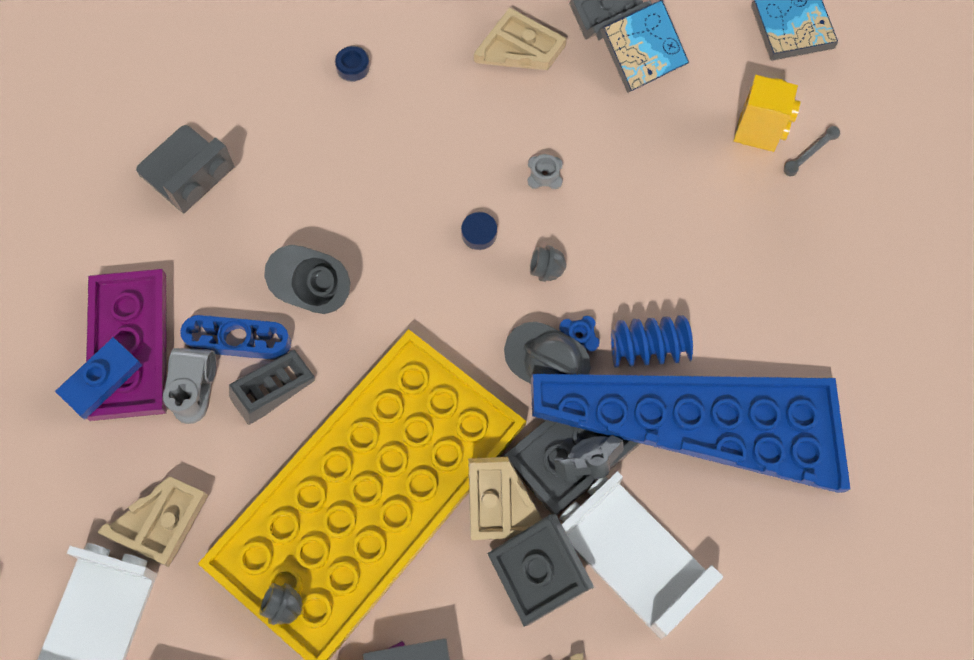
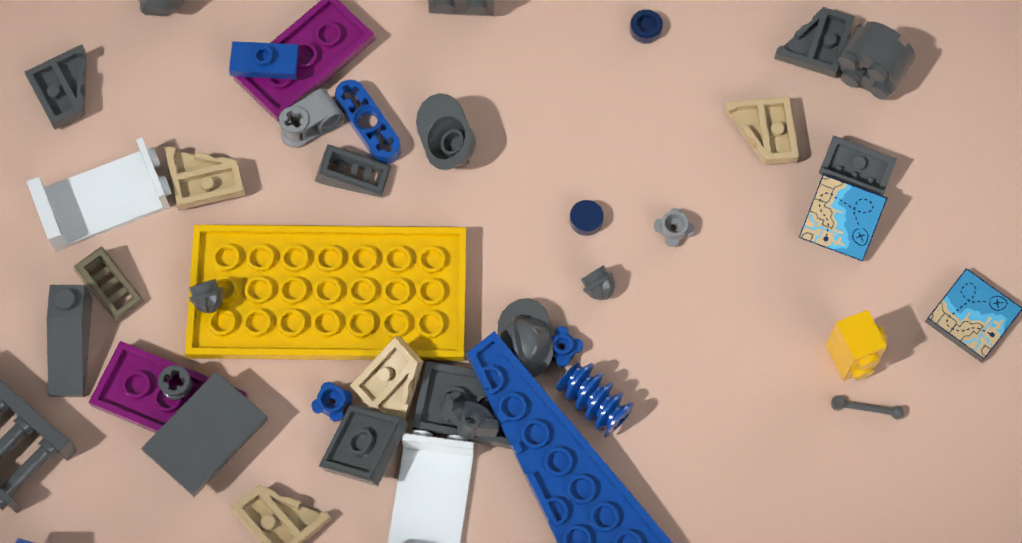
camera: 50 degrees right, 0 degrees up
(460, 565) = (328, 392): none -> blue plate

